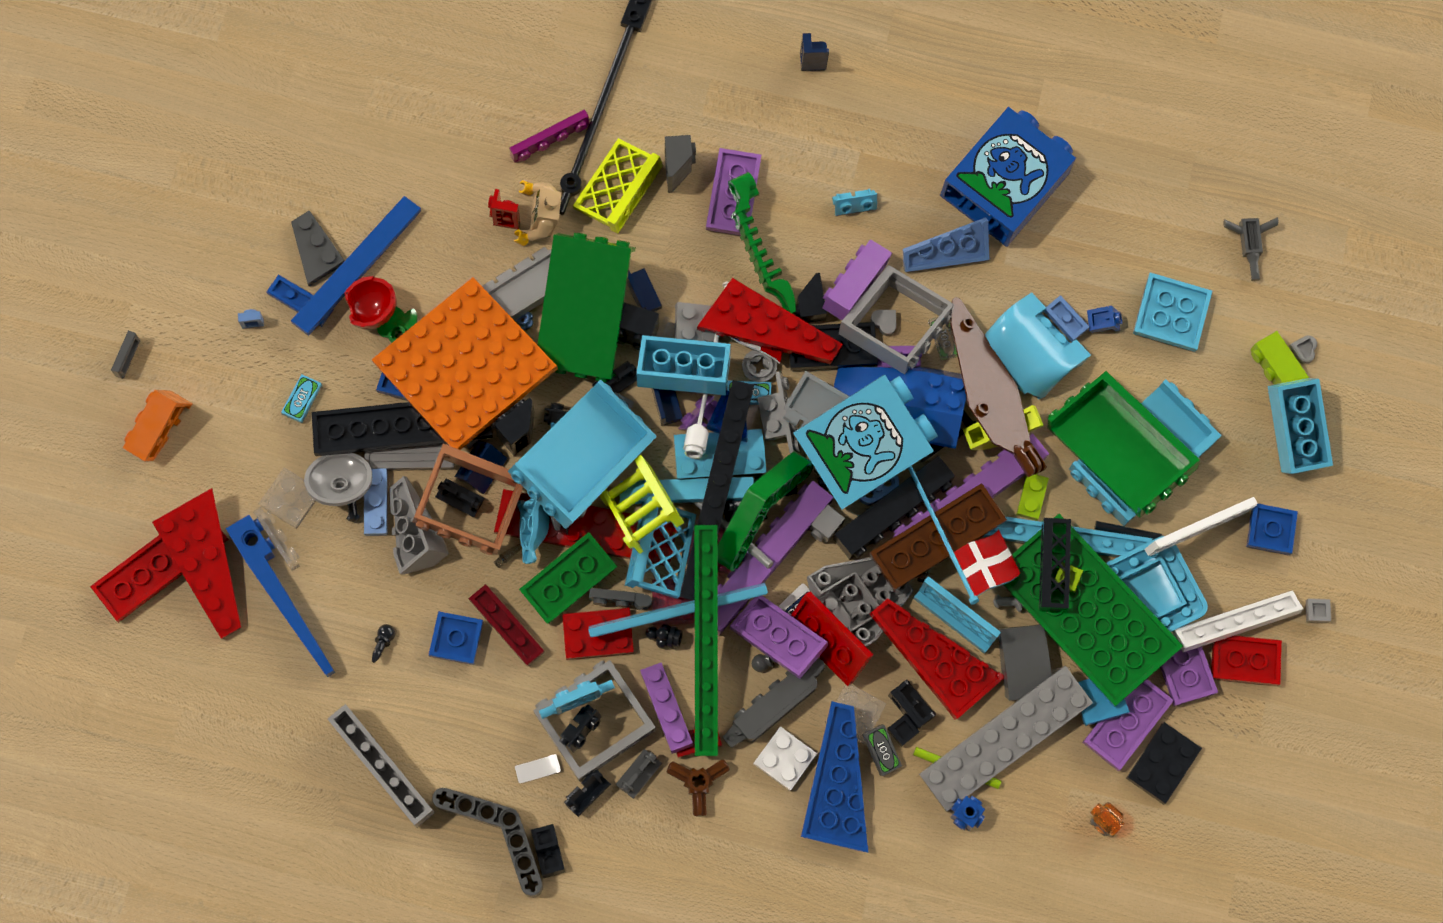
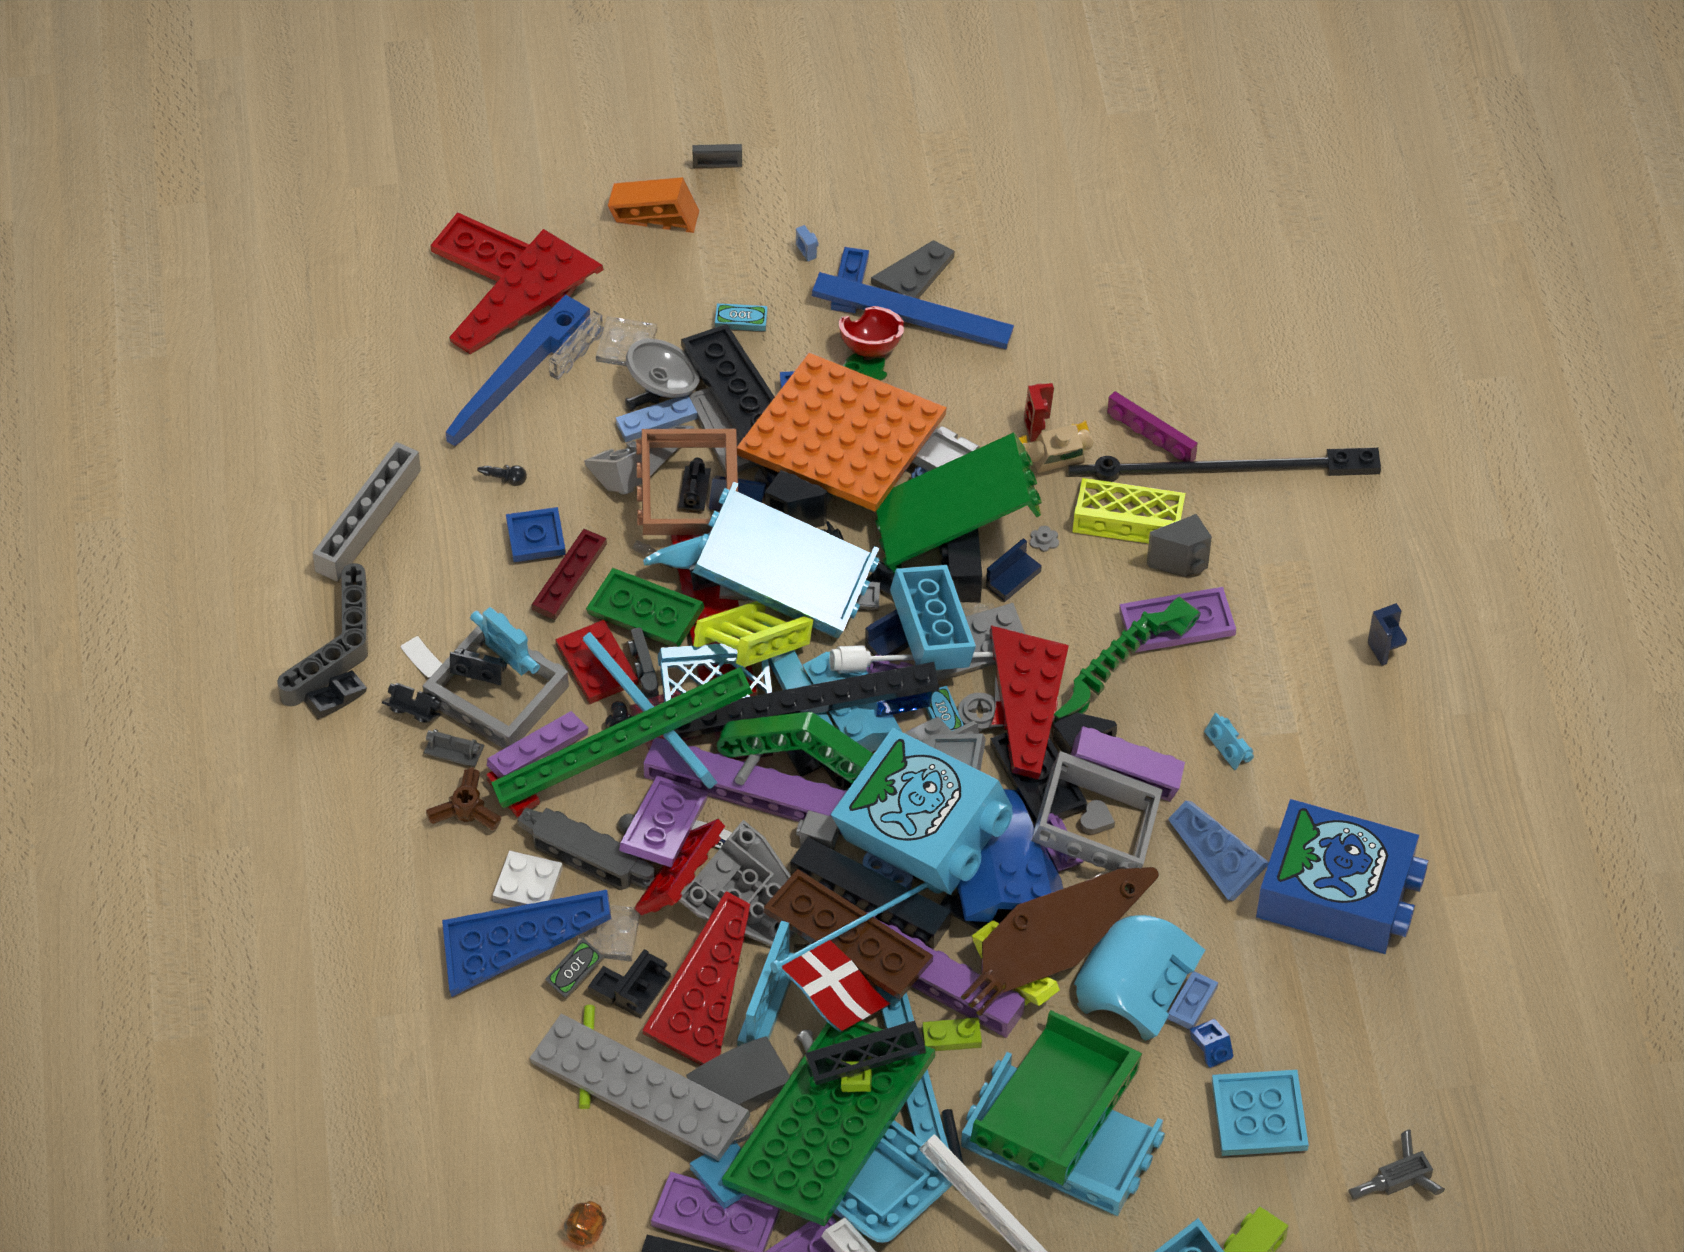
camera: 75 degrees right, 20 degrees down
(960, 817) = (534, 1076): blue brick -> none

